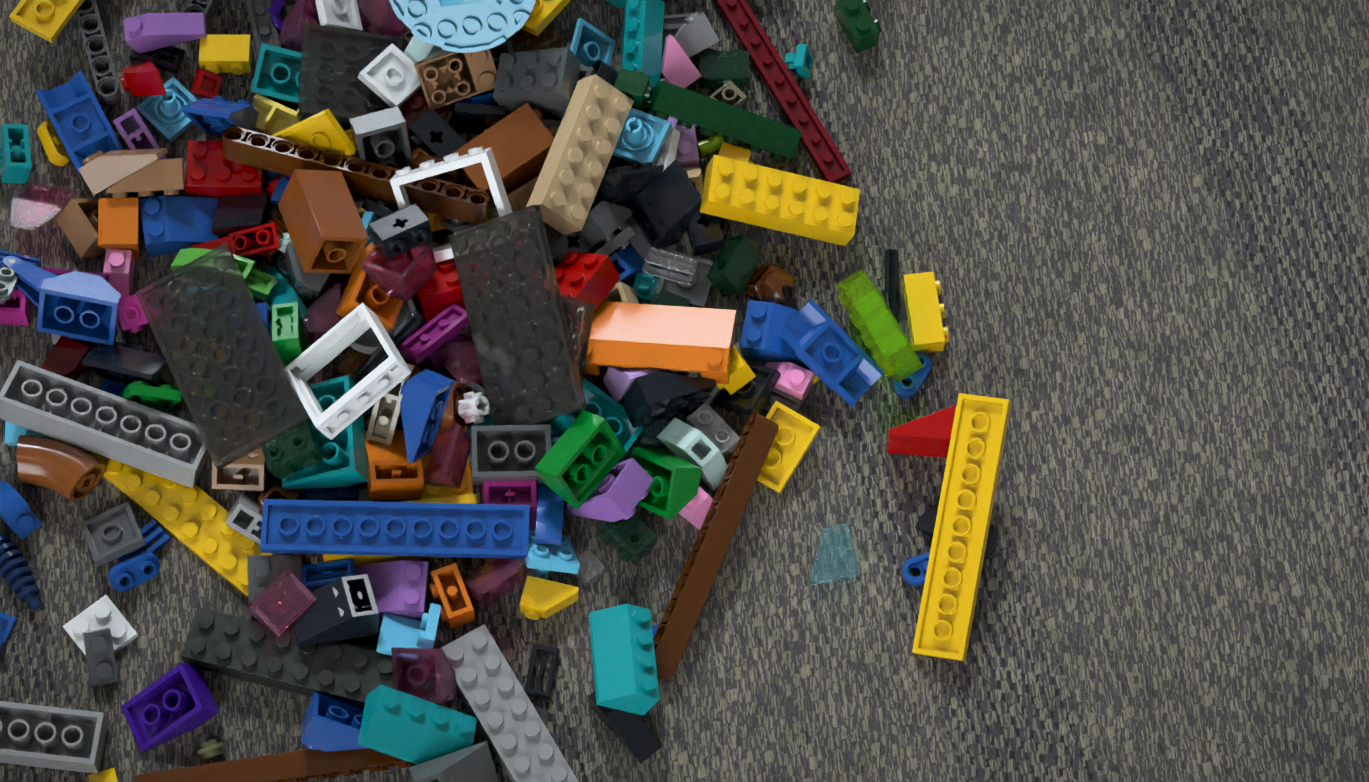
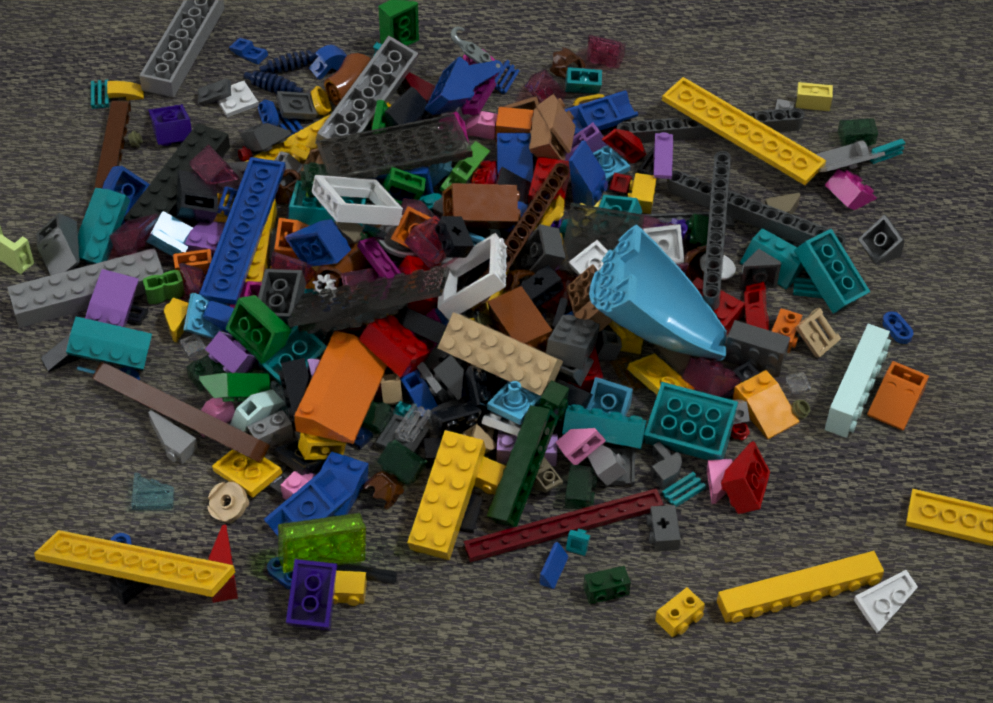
camera: 100 degrees right, 15 degrees down
(64, 581) = (272, 82): none -> dark blue piece
(94, 504) = (321, 101): none -> yellow plate
(193, 557) = (263, 136): none -> dark grey slope
(218, 583) = (244, 154): none -> red plate
(223, 494) = (299, 151): none -> yellow plate
(501, 626) = (163, 287): none -> bright green brick
(548, 678) = (112, 298): none -> medium lavender slope
(748, 550) = (175, 441): none -> light grey slope
(839, 87) = (553, 566): none -> blue slope
(845, 456) = (235, 509): none -> tan plate
(958, 322) = (312, 595): none -> dark purple slope

